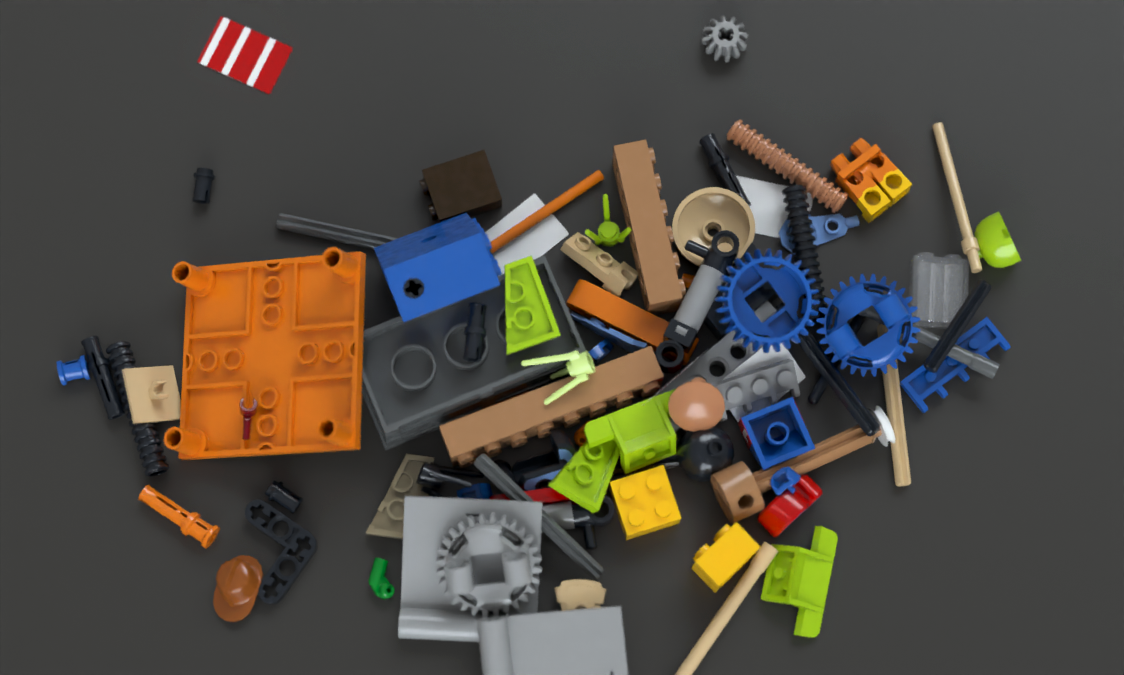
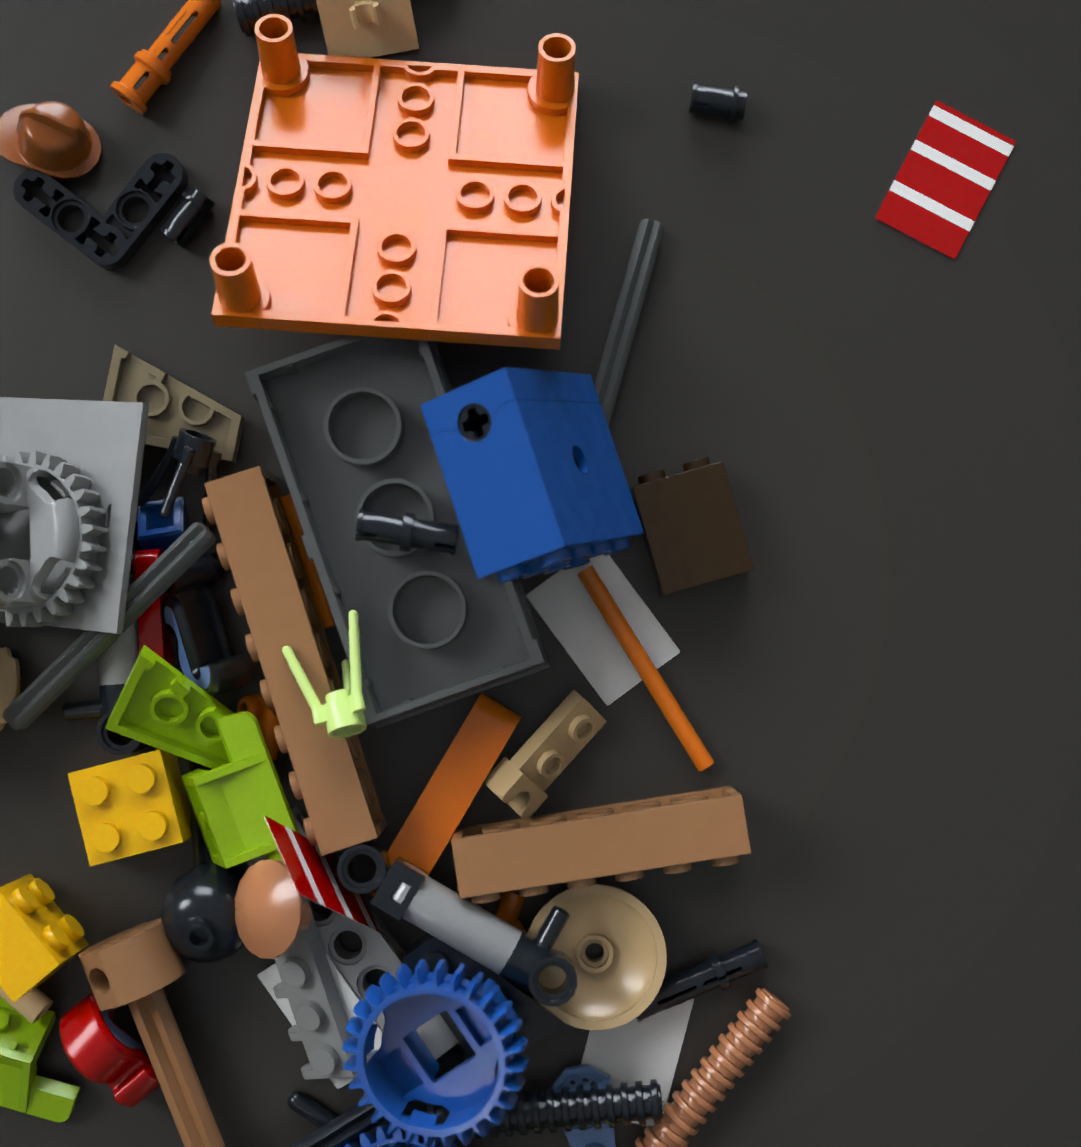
camera: 95 degrees right, 10 degrees up
(247, 418) = (301, 150): dark red hand -> none
(378, 581) = (41, 364): green arm -> none
(526, 307) = (447, 624): lime wing -> none
(601, 350) = (394, 743): blue tile -> none
(608, 231) = (603, 773): lime plant -> none
(612, 335) = (437, 748): medium blue piece -> none
(724, 47) = (956, 997): light grey gear -> none
(776, 433) = (227, 1038): blue slope -> none
(784, 479) = (135, 1050): blue piece -> none

